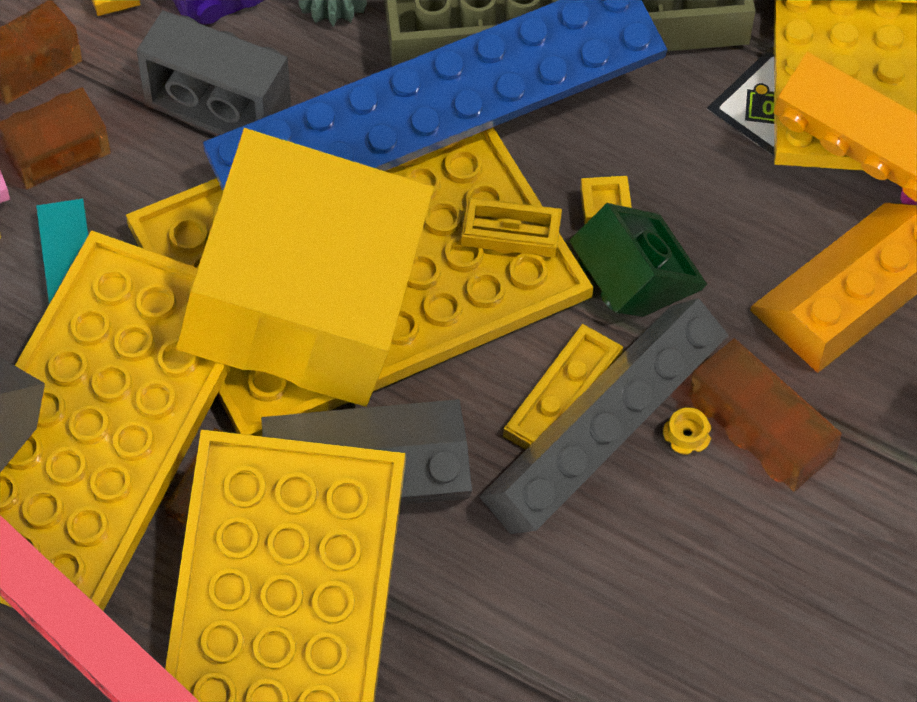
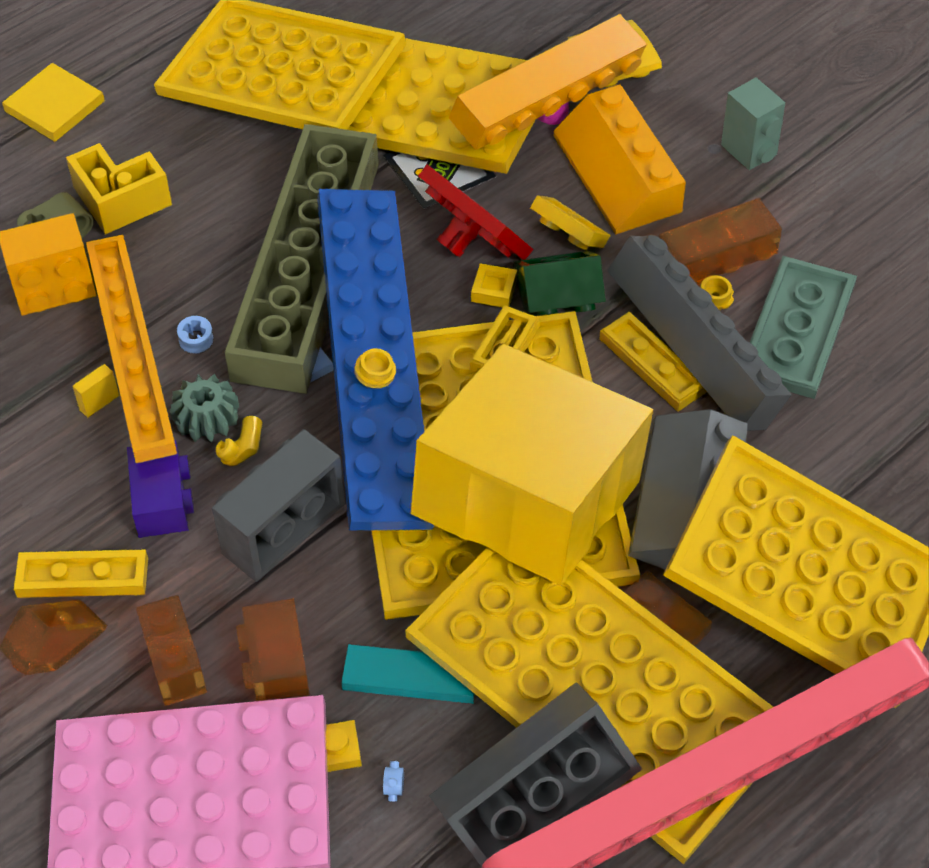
camera: 70 degrees left, 5 degrees down
(302, 40) = (247, 445): none -> yellow arm
(391, 97) = (375, 368): none -> yellow plate
(679, 535) = (802, 322): none -> sand green tile
(688, 145) = (470, 220): none -> red plate
(733, 251) = (557, 216): none -> yellow plate

